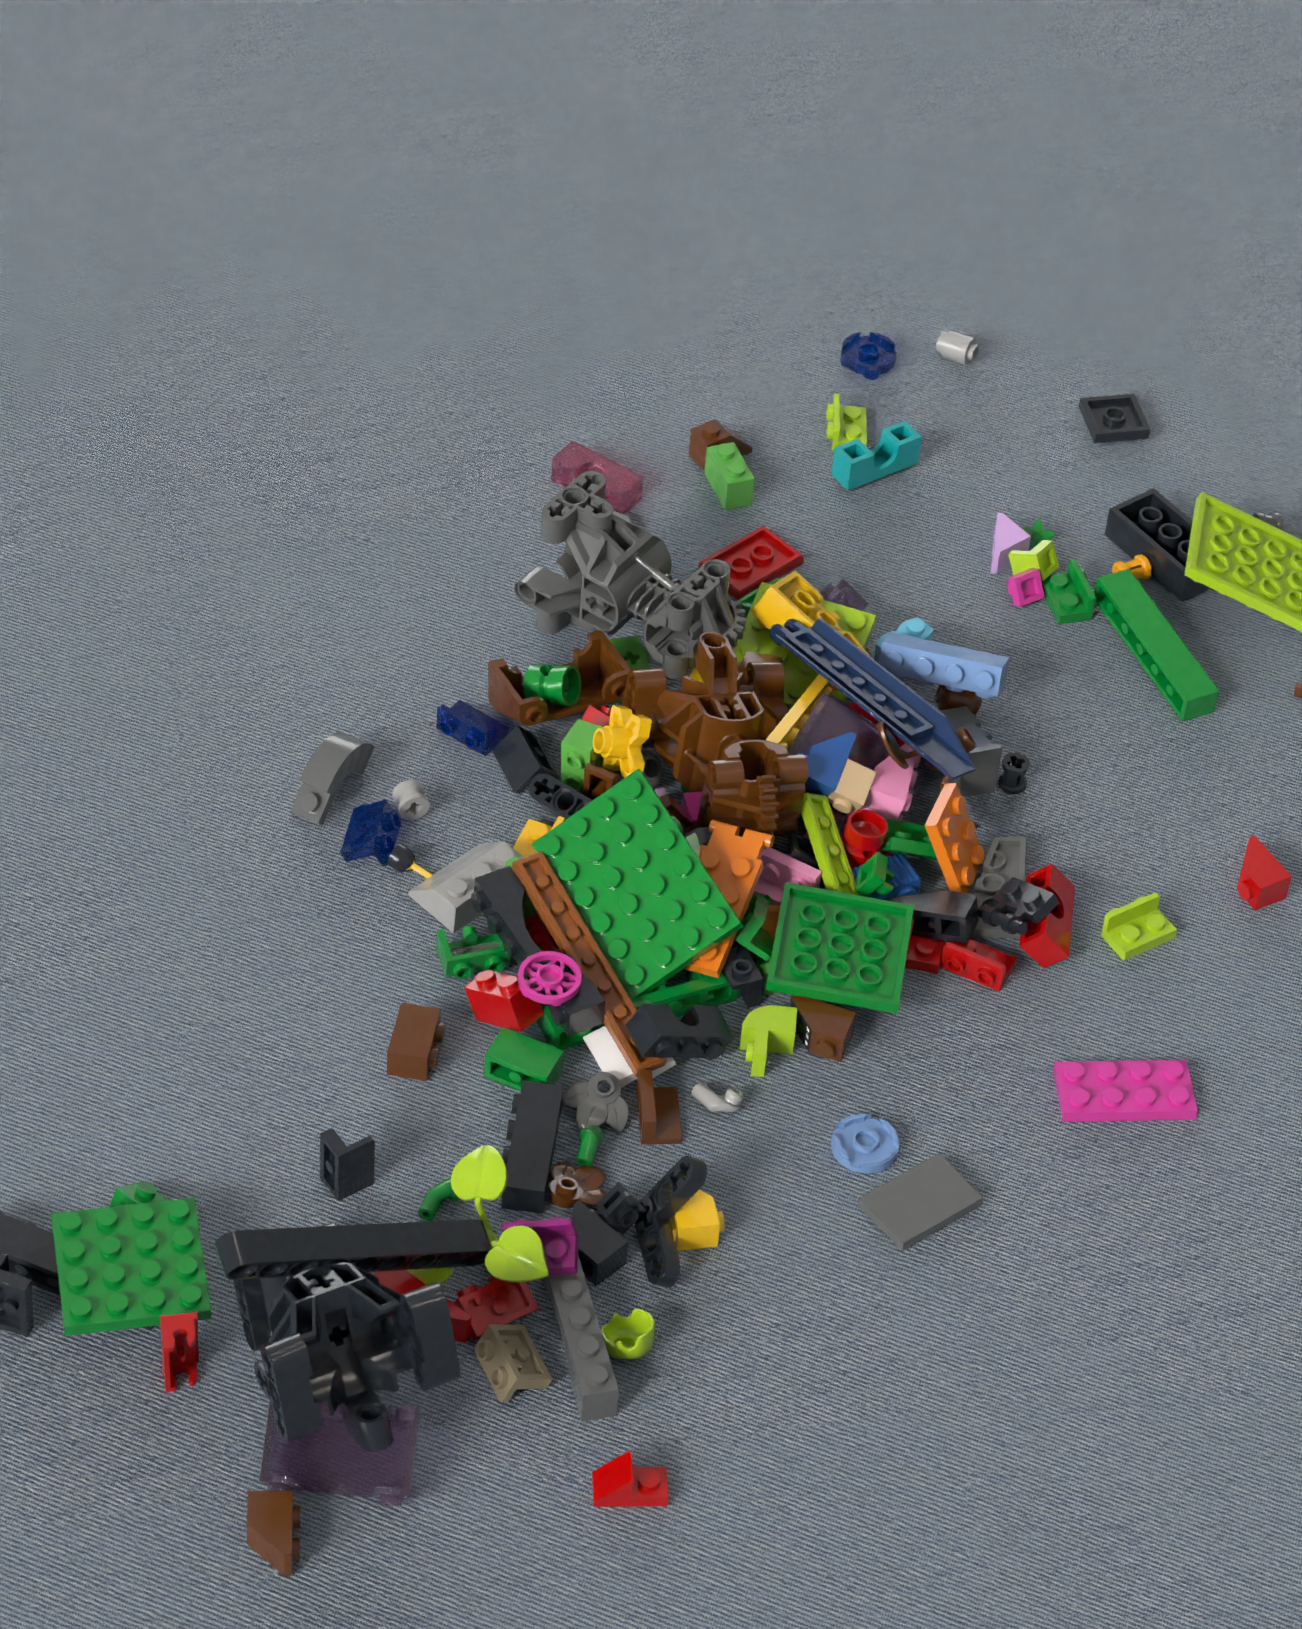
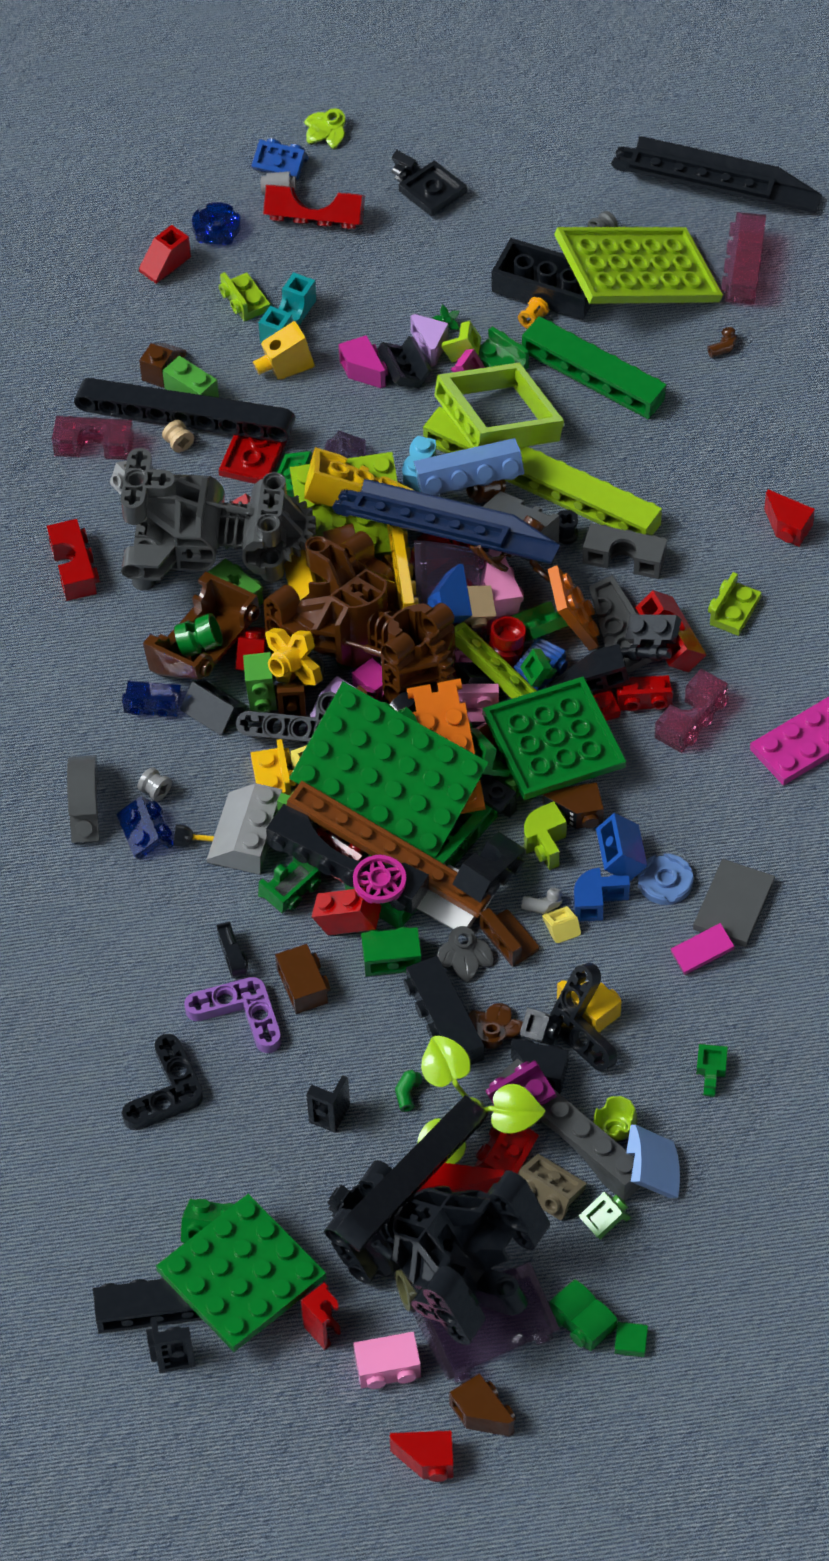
camera: 25 degrees left, 10 degrees up
(185, 1540) = (425, 1453): none -> red slope
(213, 1078) = (177, 1087): none -> black beam
(214, 1431) = (387, 1360): none -> bright pink brick
(344, 1039) = (249, 1003): none -> medium lavender beam
(365, 981) = (231, 950): none -> black piece
(446, 1499) = (582, 1315): none -> green brick
(482, 1552) = (631, 1339): none -> green tile
(488, 583) = (69, 543): none -> red arch
(547, 1417) = (604, 1214): none -> bracket
(590, 1138) = (481, 984): green arm -> none
(628, 1486) = (692, 1230): red slope -> none
(634, 1392) = (654, 1162): none -> light blue slope
(681, 514) = (178, 436): none -> tan wheel
(706, 494) = (192, 409): none -> black beam
(722, 1131) = (562, 924): none -> light yellow slope
(773, 1336) = (711, 1063): none -> green plate
(778, 1112) = (593, 889): none -> blue brick
(795, 355) = (165, 254): none -> red slope
(835, 1085) = (621, 846): none -> blue brick
(844, 490) = (285, 353): none -> yellow torso
(850, 1225) = (702, 949): none -> dark pink tile
(918, 532) = (362, 362): none -> dark pink slope
(960, 555) = (405, 362): none -> black bracket
(977, 323) = (275, 157): none -> blue bracket
(991, 1011) = (682, 727): none -> clear pink arch
(1005, 393) = (344, 209): none -> red arch
(1032, 603) = (453, 385): none -> lime window
(1037, 728) = (561, 483): none -> lime brick
(1041, 806) = (607, 542): none -> dark grey arch
(1047, 320) = (324, 128): none -> lime plate
(1098, 384) = (403, 166): none -> black tile

